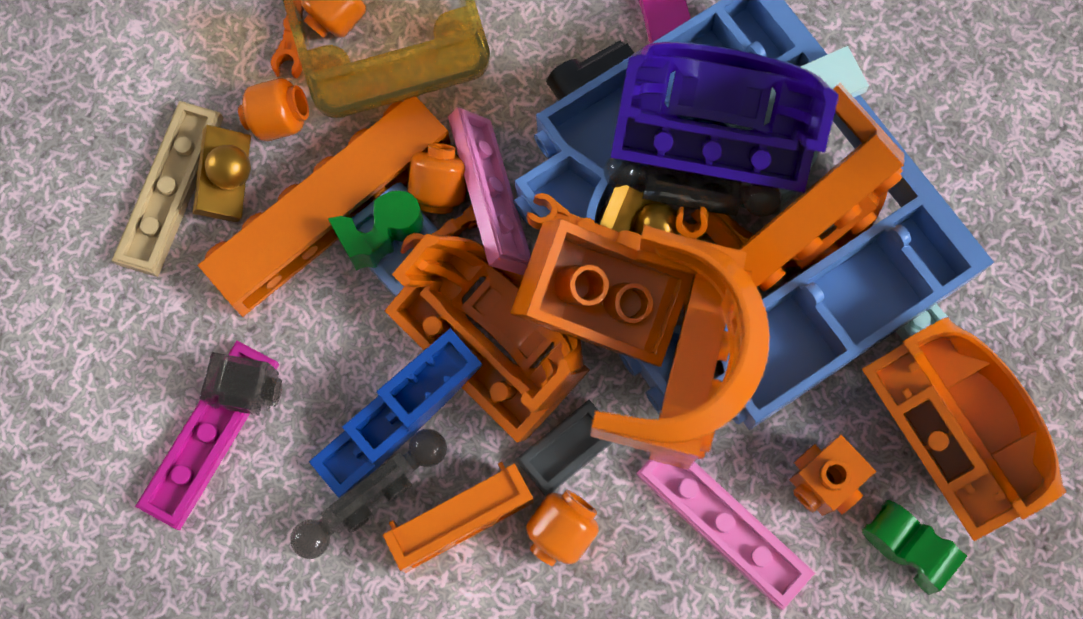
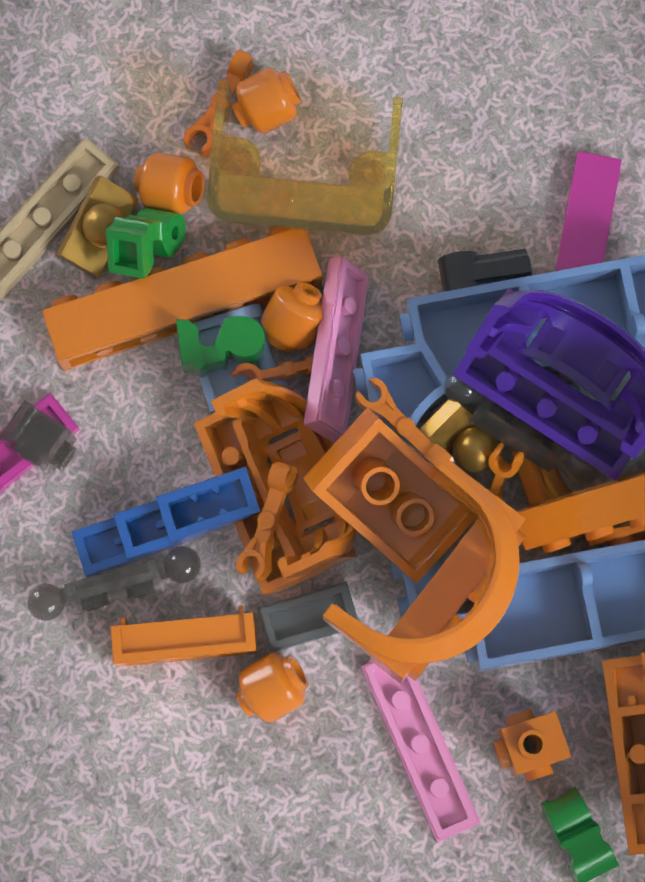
camera: 20 degrees right, 5 degrees up
(263, 167) = (137, 238): none -> green leg
(490, 327) = (281, 481): none -> orange piece

